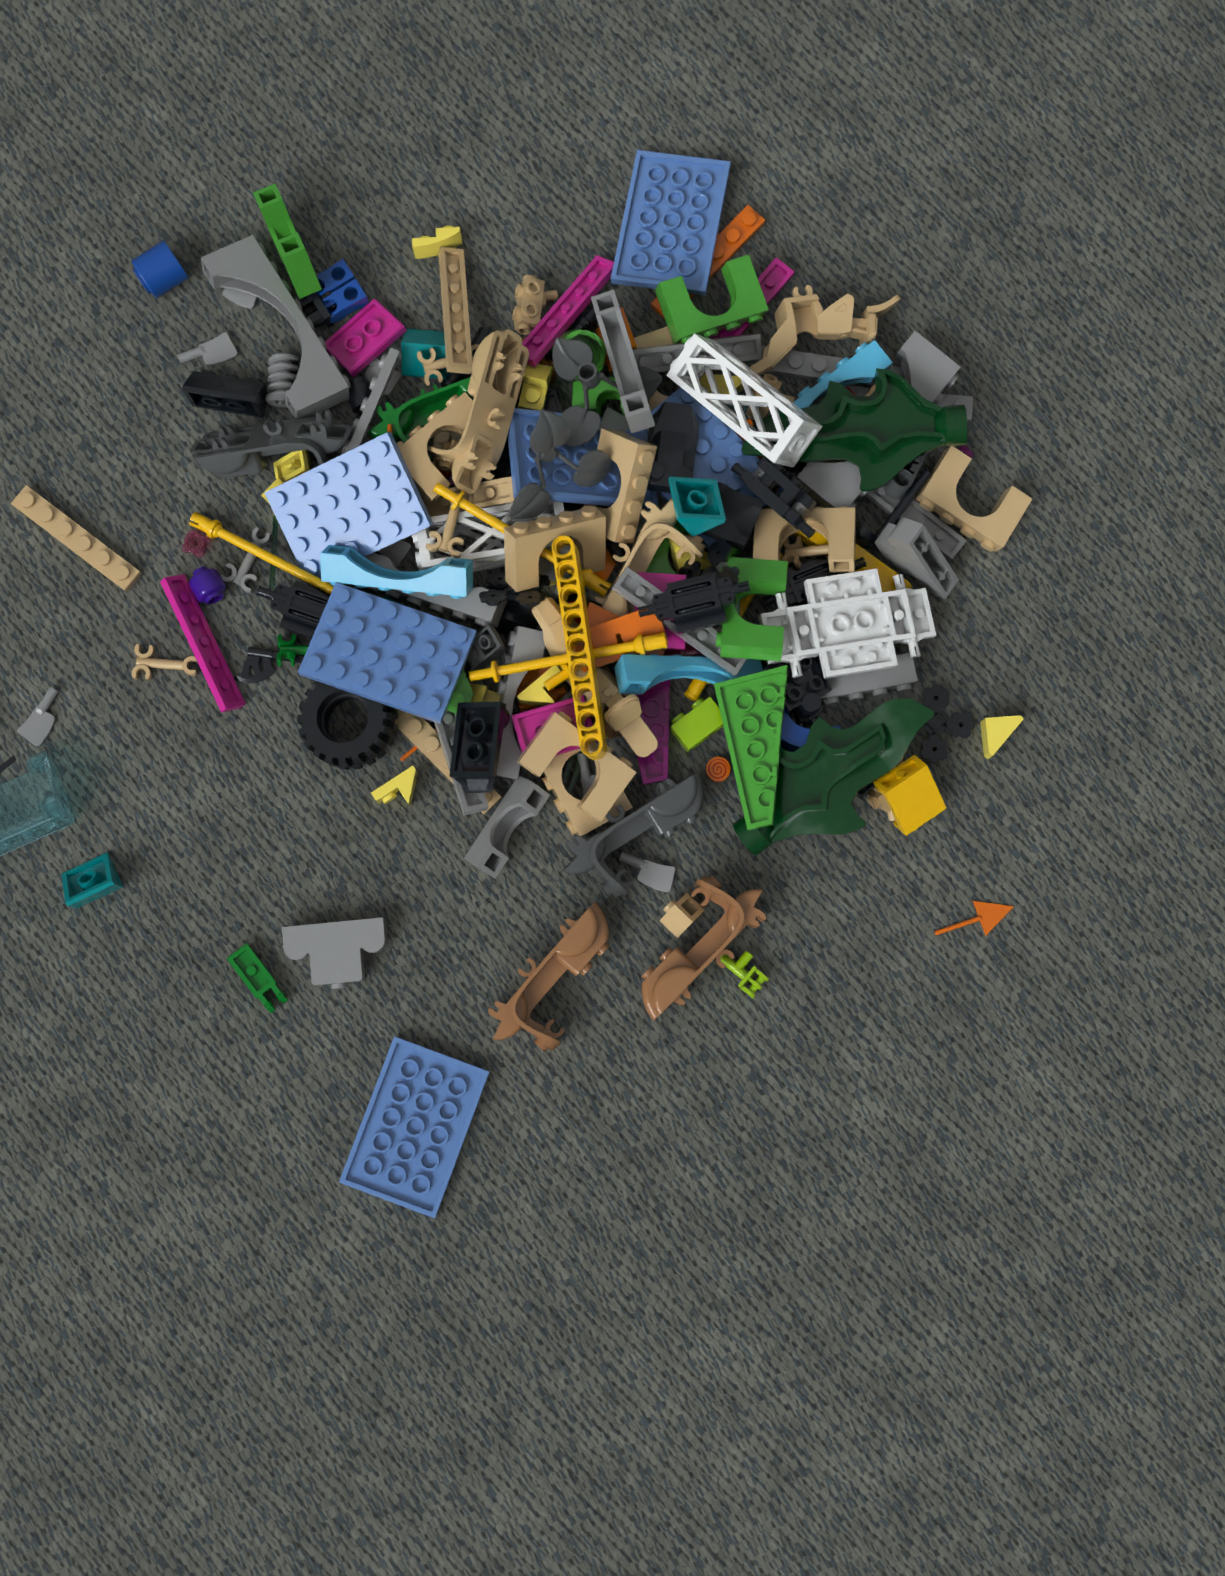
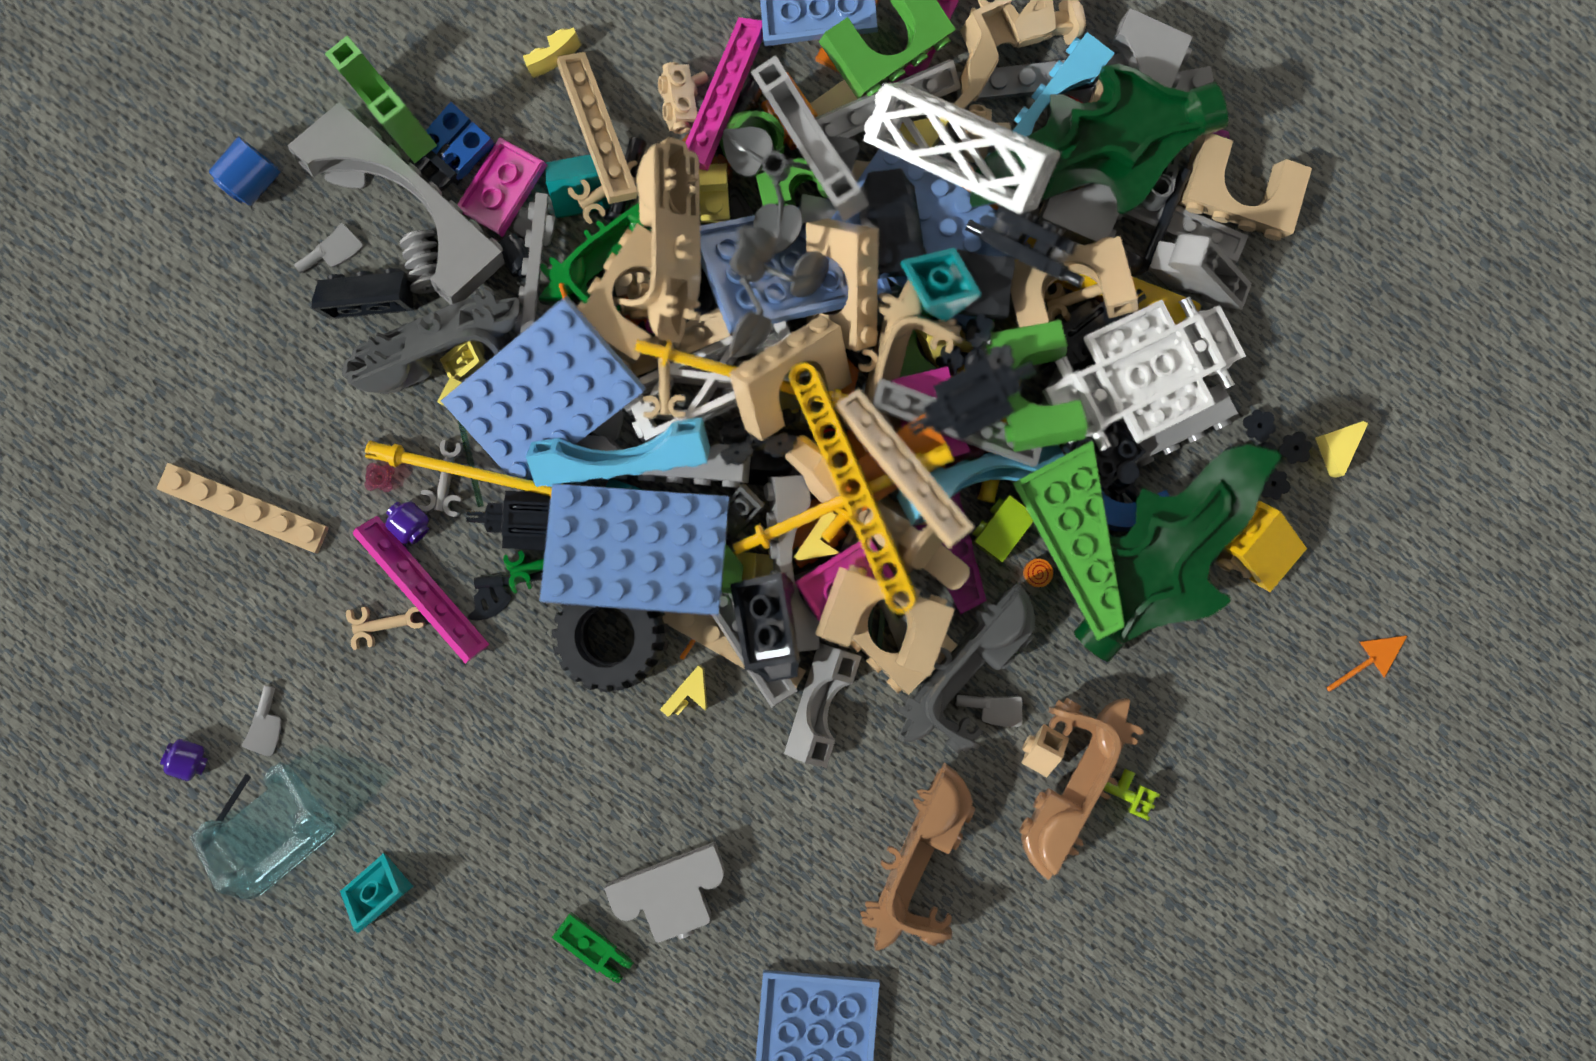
camera: 10 degrees left, 5 degrees up
(624, 641) = (903, 468): none -> tan plate

